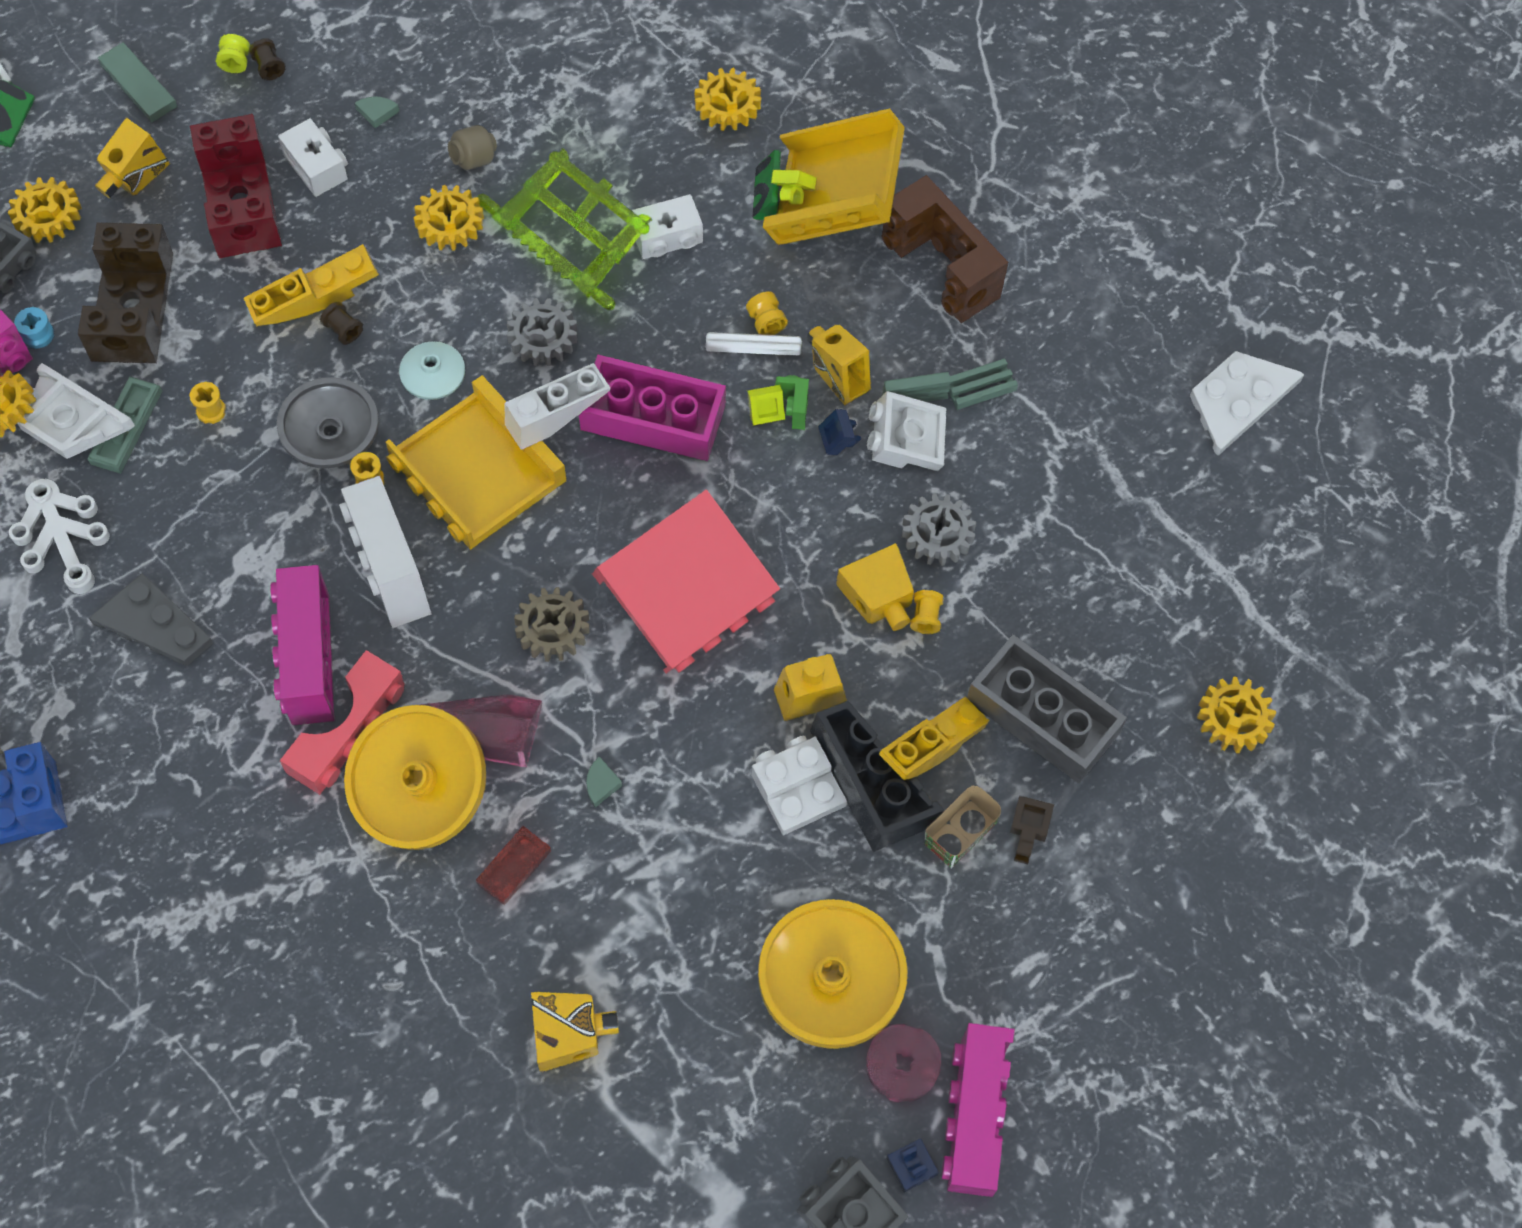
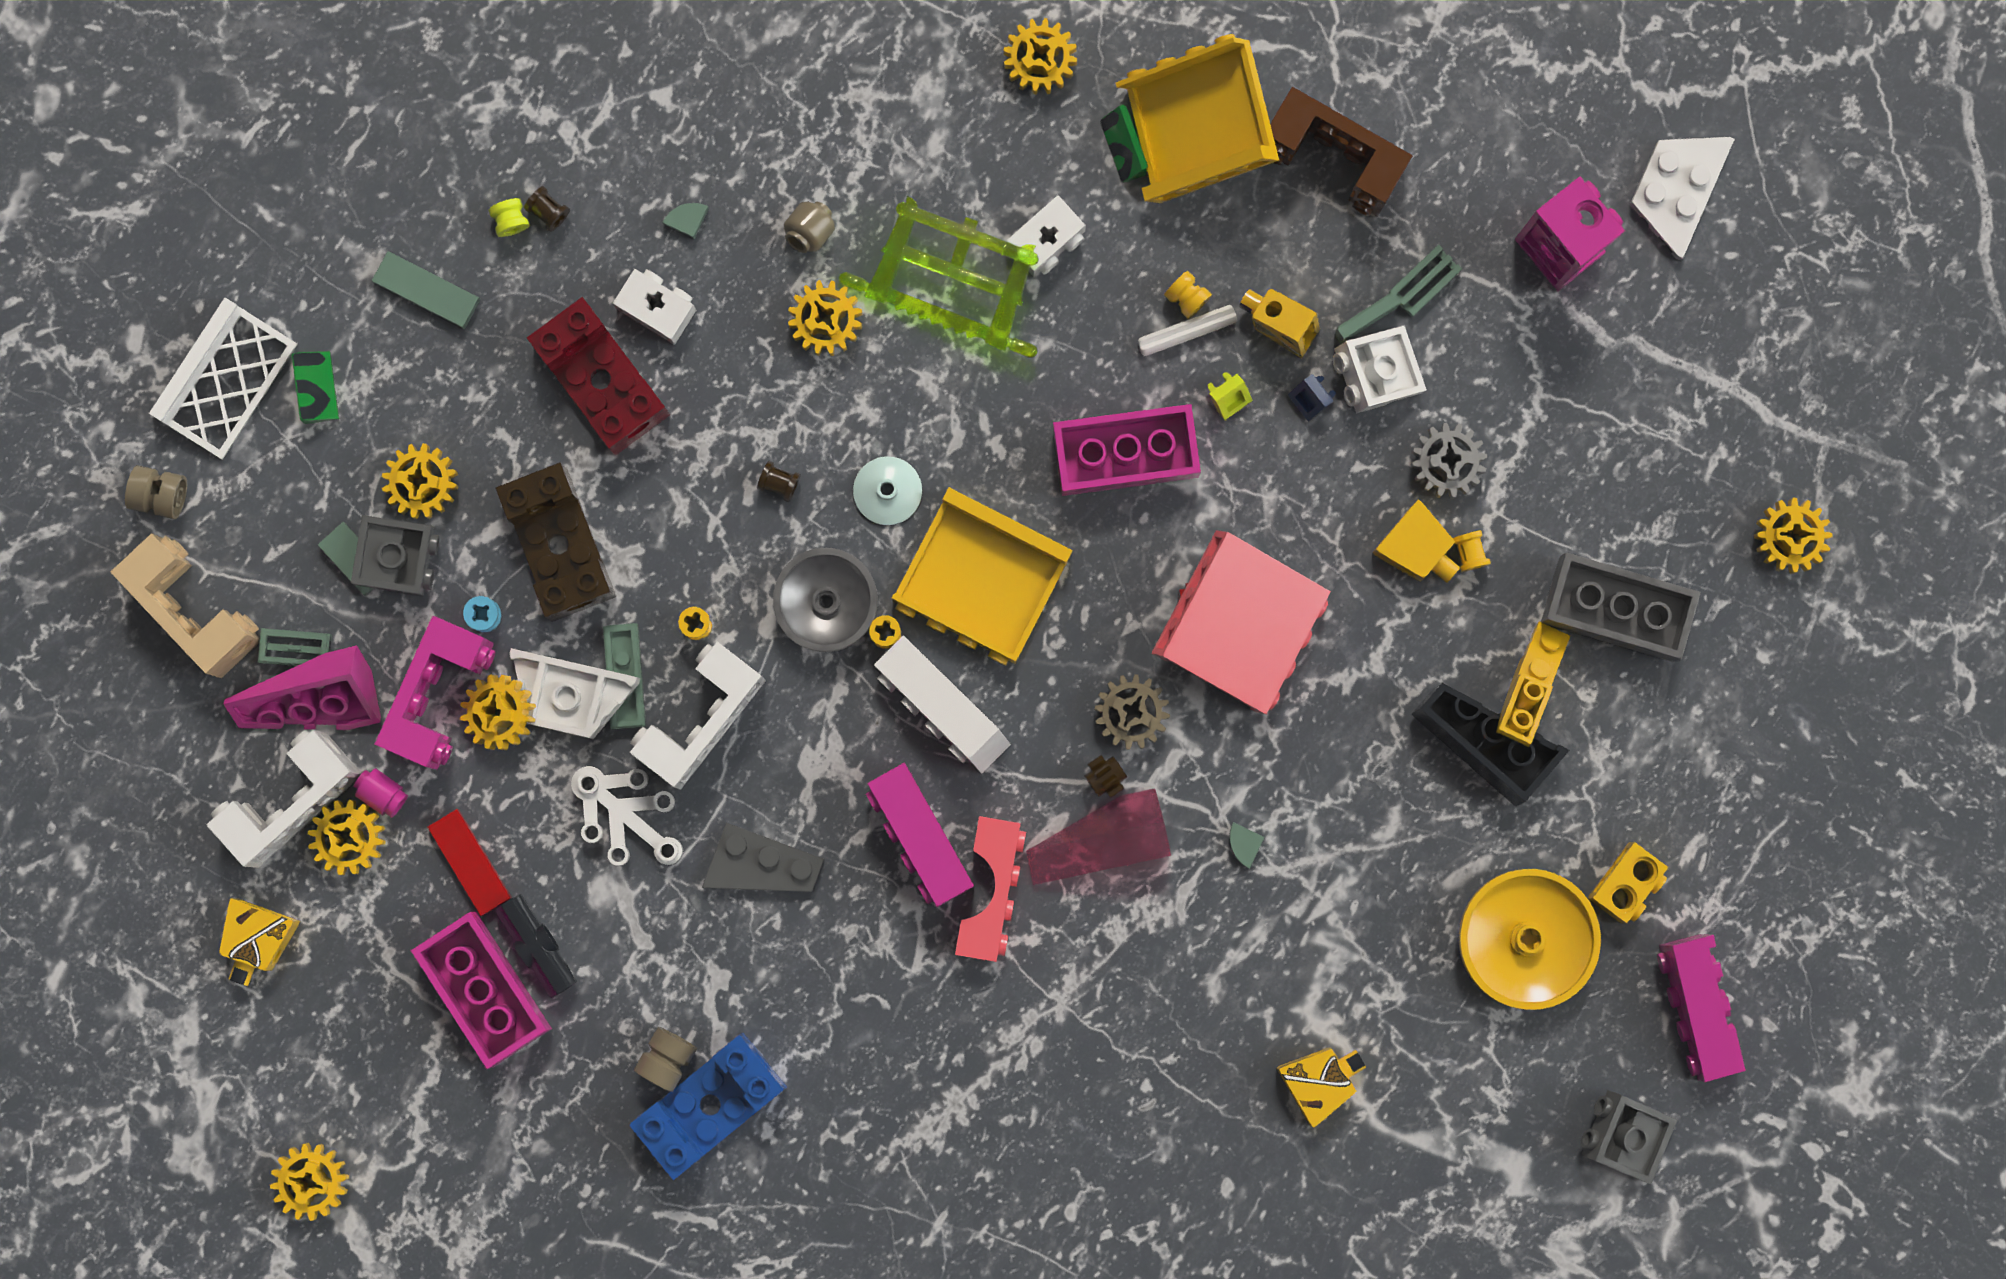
camera: 20 degrees left, 20 degrees up
(129, 160) = (480, 381): yellow torso -> none
(173, 484) = (671, 759): none -> white plate
(308, 293) = (731, 457): yellow slope -> none
(415, 777) = (1082, 916): yellow dish -> none
(500, 667) = (1105, 776): none -> dark brown gear
(513, 865) = (1204, 956): clear red plate -> none
(542, 330) = (965, 399): light grey gear -> none
(553, 405) = (1041, 497): white slope -> none
(793, 184) = (1156, 141): neon yellow tile -> none
(796, 392) = (1261, 382): bright green bracket -> none
(797, 784) = (1423, 772): white plate -> none
(811, 687) = (1396, 678): yellow torso -> none
(895, 1083) = (1639, 987): clear pink plate -> none
(912, 1165) = (1661, 1072): dark blue tile -> none
(947, 956) = (1621, 876): none -> yellow brick
(982, 803) = (1604, 752): tan piece -> none
(1031, 823) = (1646, 719): dark brown plate -> none
(1118, 366) = (1559, 240): none -> dark pink plate

